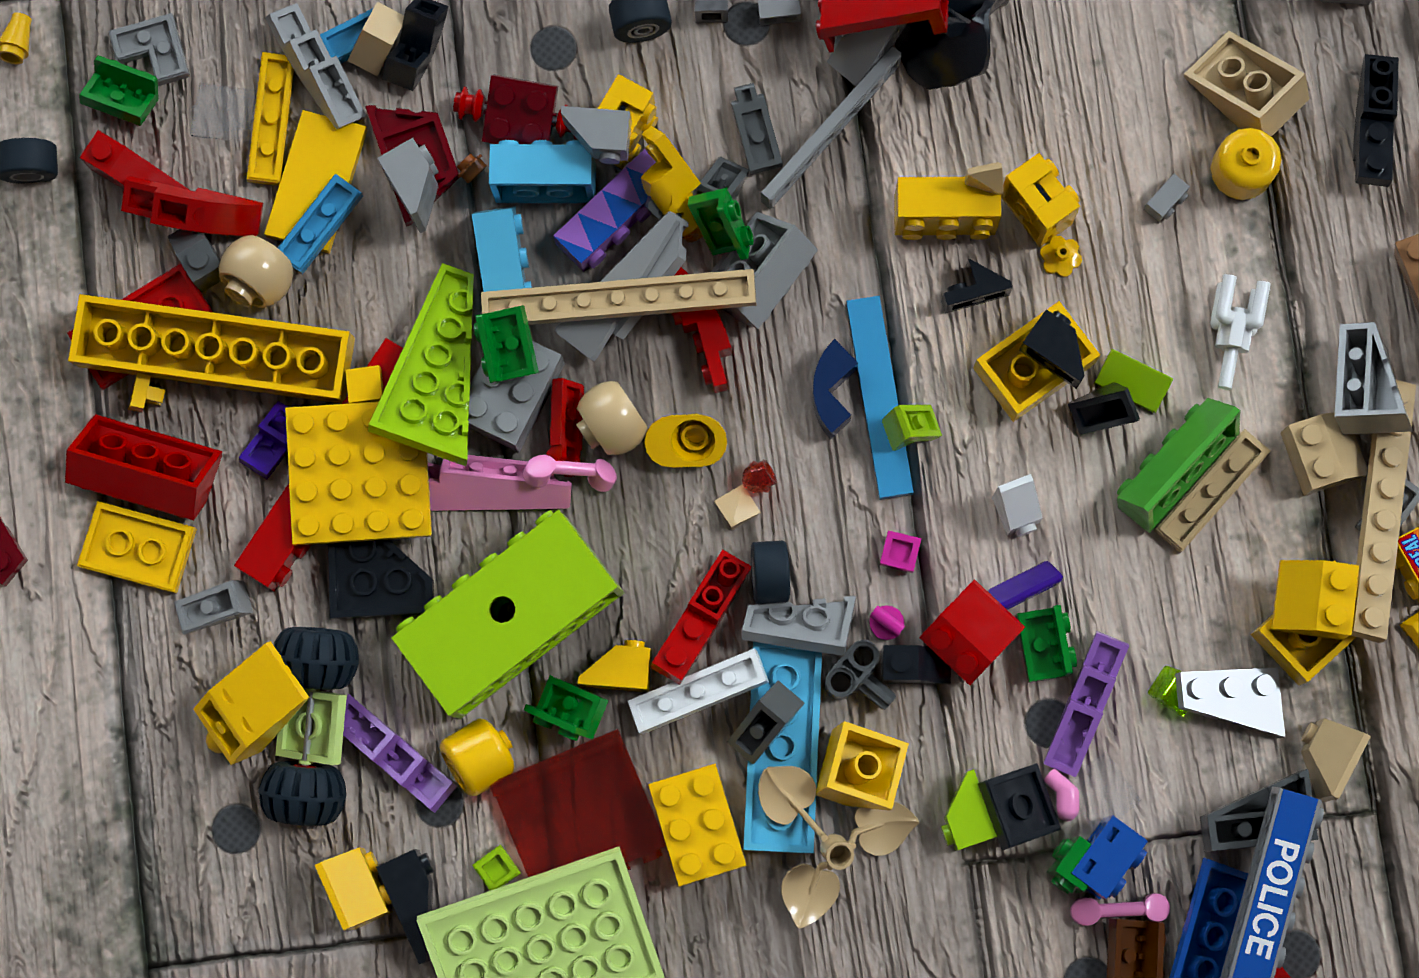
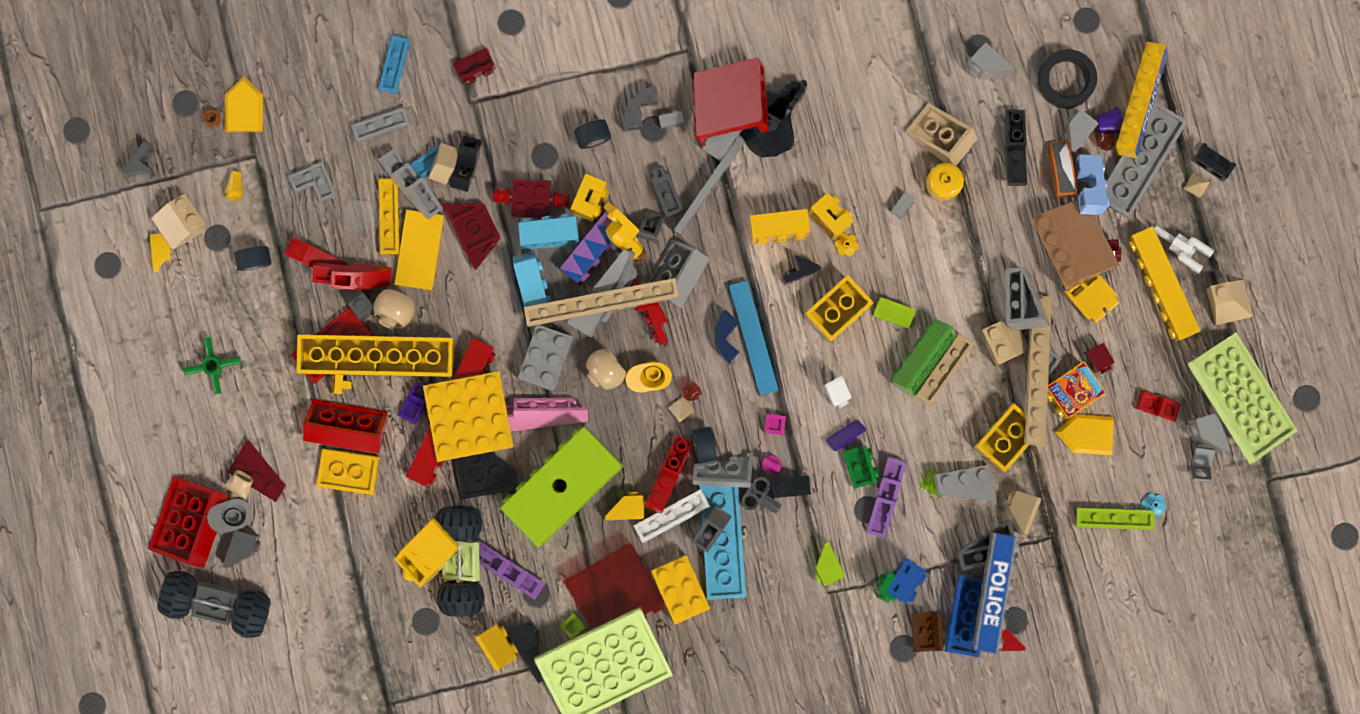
camera: 10 degrees left, 5 degrees up
(120, 91) = (300, 211): green bracket -> none
(213, 606) = (395, 500): light grey slope -> none
(320, 223) = (425, 275): dark azure tile -> none
(364, 384) = (465, 367): yellow tile -> none
(412, 177) = (477, 247): light grey slope -> none
(430, 385) = (502, 363): lime wing -> none
(471, 167) = (507, 232): dark orange plate -> none
(477, 756) = (555, 566): yellow head -> none
(506, 344) = (542, 336): green bracket -> none
(541, 467) = (570, 402): bright pink bar -> none
(564, 433) = (579, 380): red hinge -> none
(569, 708) = (602, 534): green bracket -> none
(600, 131) = (581, 210): light grey slope -> none
(721, 222) = (654, 251): green bracket -> none
(813, 891) = (747, 617): tan plant -> none
(861, 768) = (766, 547): yellow slope -> none
(910, 424) = (773, 353): lime slope -> none
(972, 632) = (819, 466): red slope -> none
(986, 178) = (799, 211): tan slope -> none
(1019, 806) = (855, 558): black tile -> none
(1055, 347) = (848, 302): black slope -> none
(1066, 795) = (880, 548): bright pink arm -> none
(1088, 911) = (899, 610): bright pink bar -> none
(1103, 409) = (879, 331): black slope -> none
(1236, 324) = (948, 275): white plant -> none
(1315, 598) = (1004, 426): yellow slope -> none

